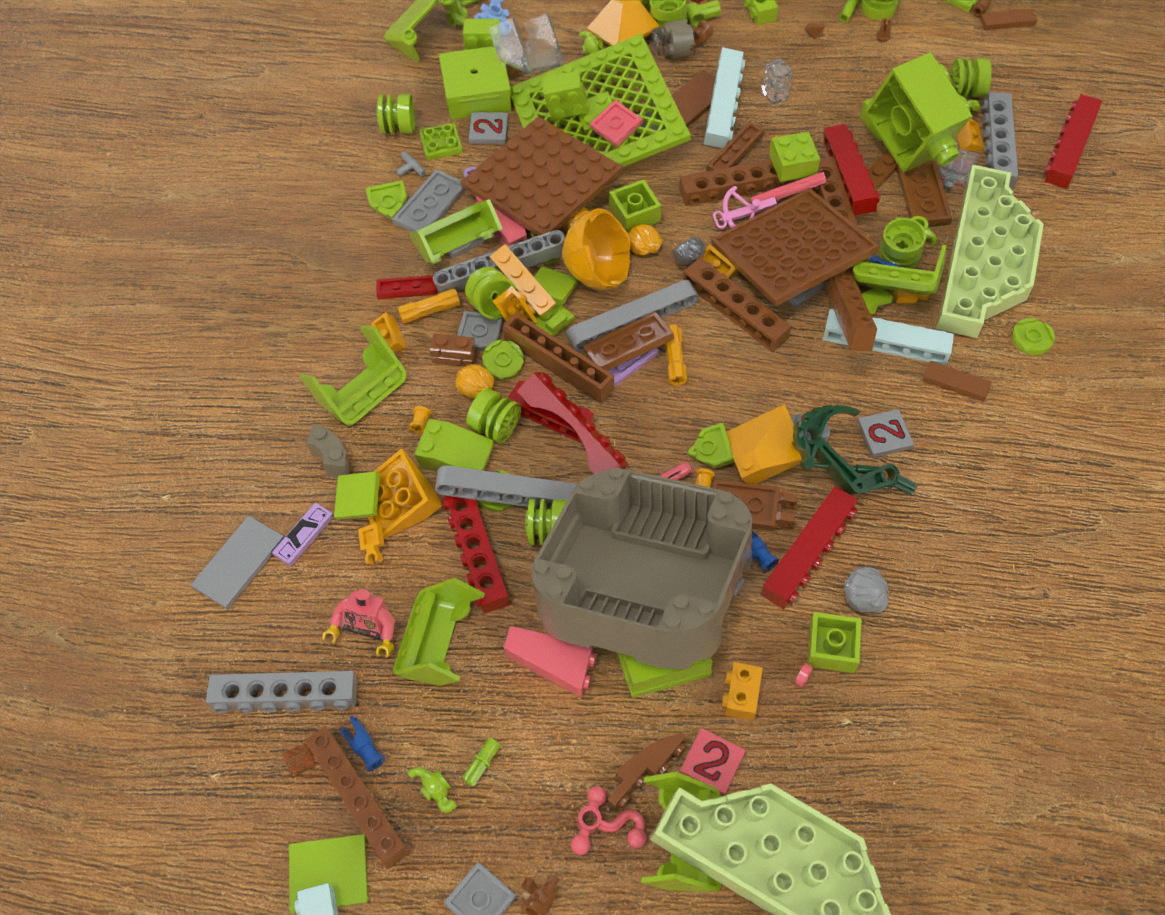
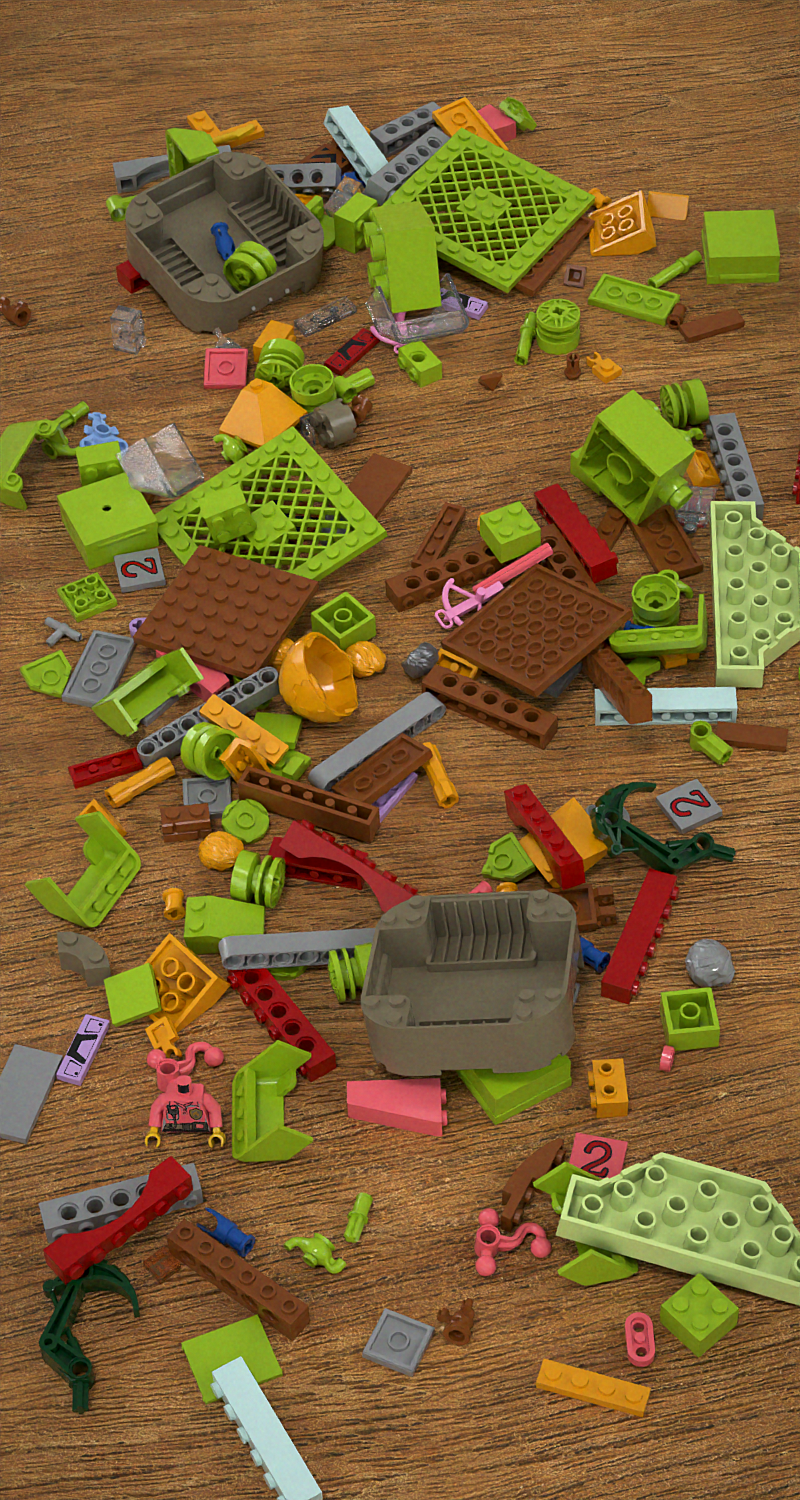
camera: 15 degrees left, 10 degrees down
(184, 806) = (68, 1358): none -> dark green piece
(219, 736) = (78, 1251): none -> red arch
(361, 569) = (169, 1069): none -> coral piece
(392, 114) = (26, 575): lime wheel -> none
(616, 123) = (295, 535): coral tile -> none
(723, 98) = (409, 481): light aqua brick -> none
(755, 451) = (558, 851): none -> red arch
(776, 81) = (464, 450): clear brick -> none
(910, 38) = (605, 369): none -> light orange plate
(918, 379) = (705, 740): none -> lime piece

